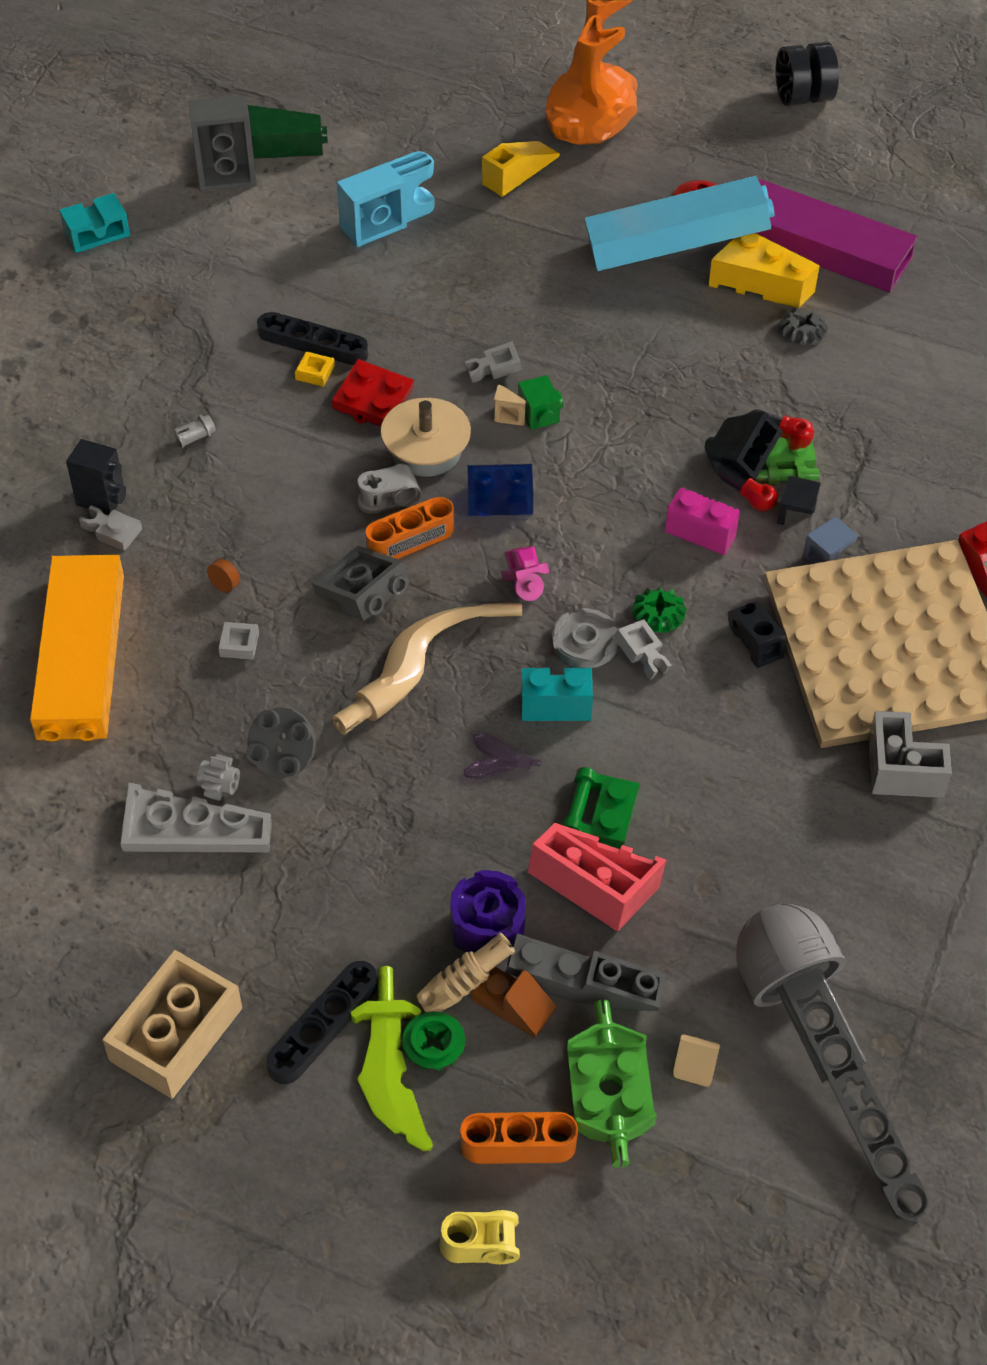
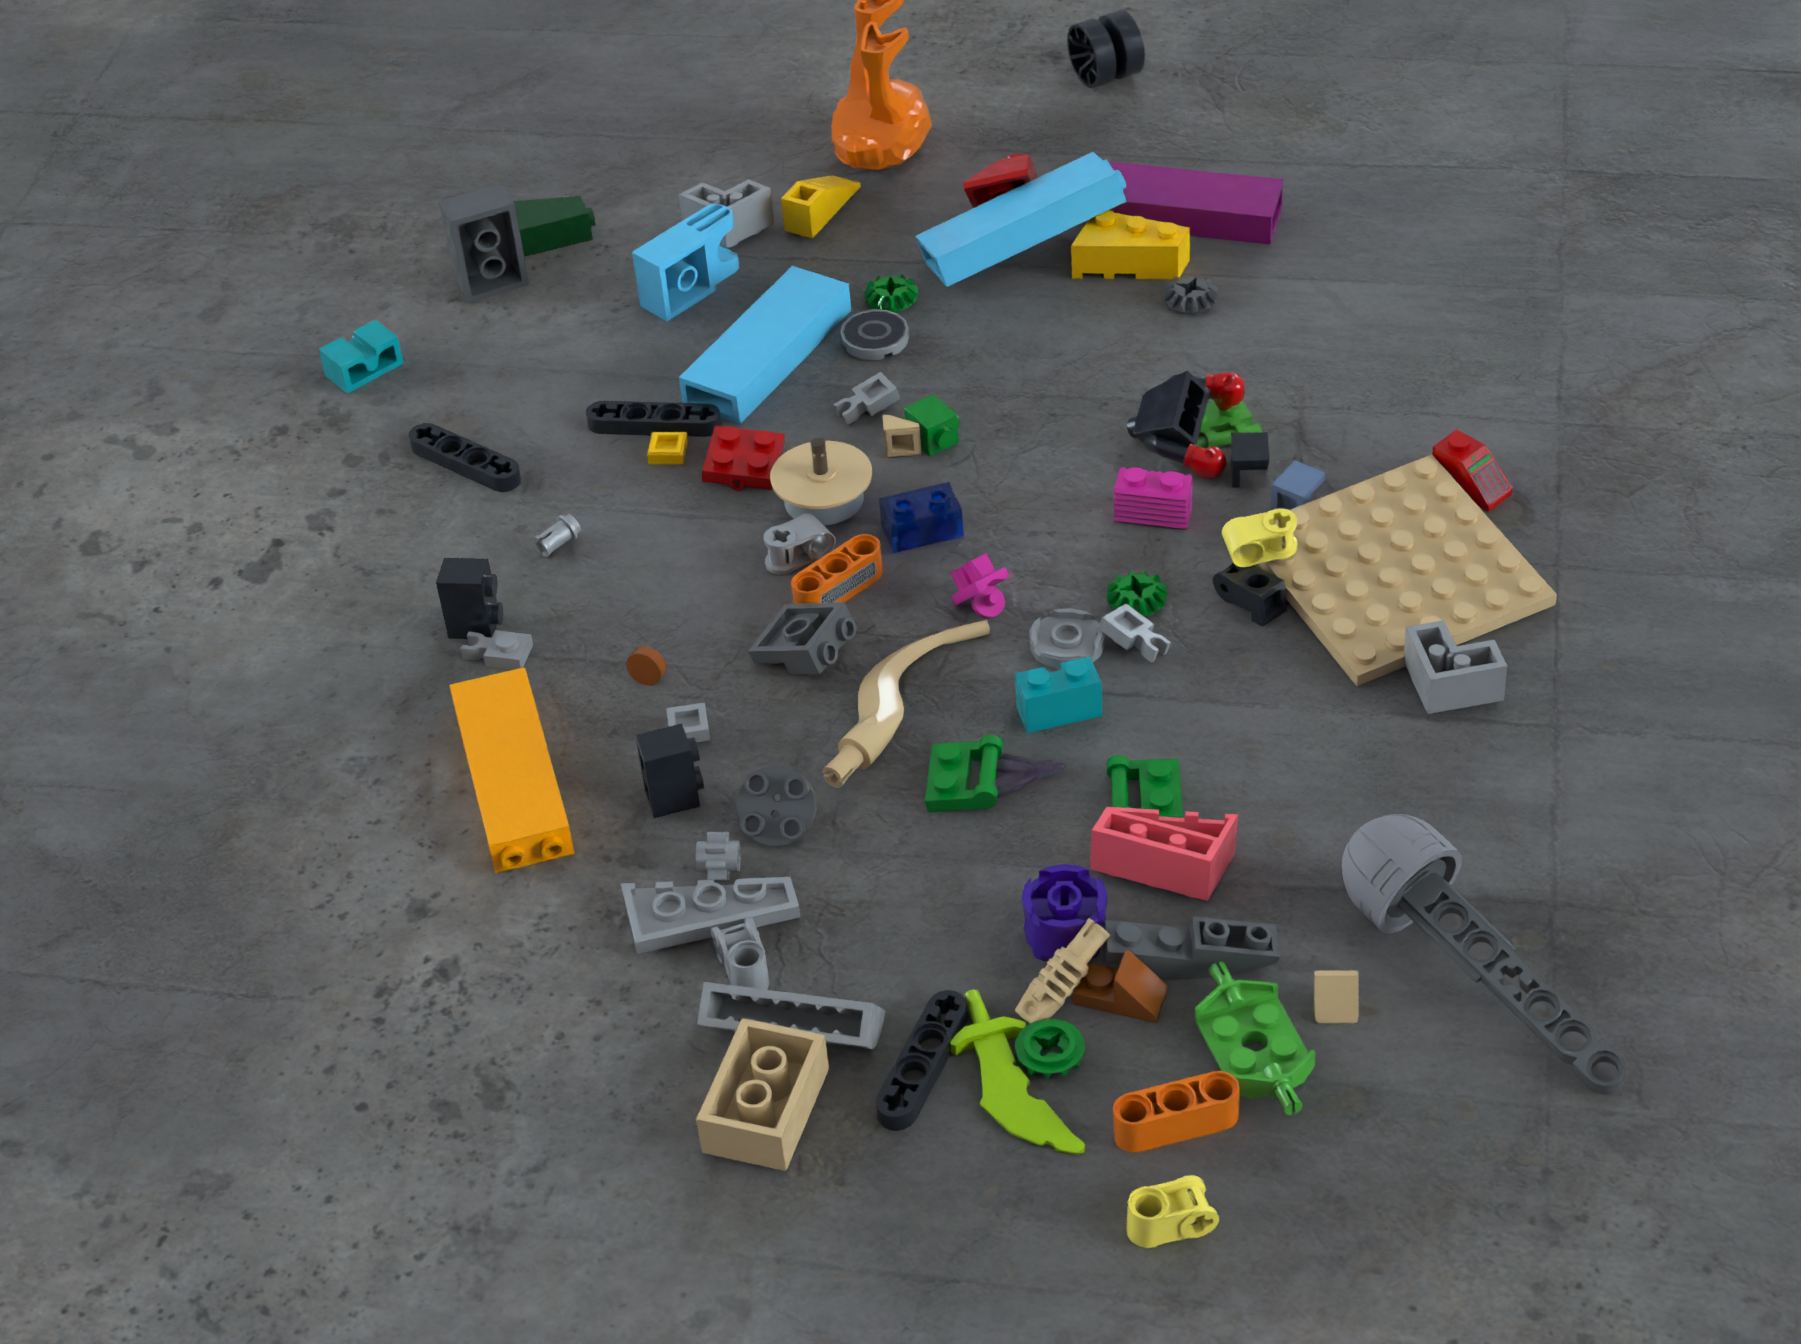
camera: 10 degrees left, 10 degrees down
(151, 334) = (496, 473): none -> black beam
(202, 685) = (669, 770): none -> black brick
(206, 875) = (742, 954): none -> light grey piece
(225, 951) = (838, 1019): none -> light grey brick
(427, 290) = (766, 343): none -> medium azure brick
(442, 746) = (951, 775): none -> green plate
(452, 155) = (748, 200): none -> light grey brick
(522, 301) = (874, 334): none -> tile
(559, 270) = (904, 293): none -> green gear
(673, 180) = (999, 178): none -> red slope
(774, 589) = (1259, 539): none -> light yellow piece

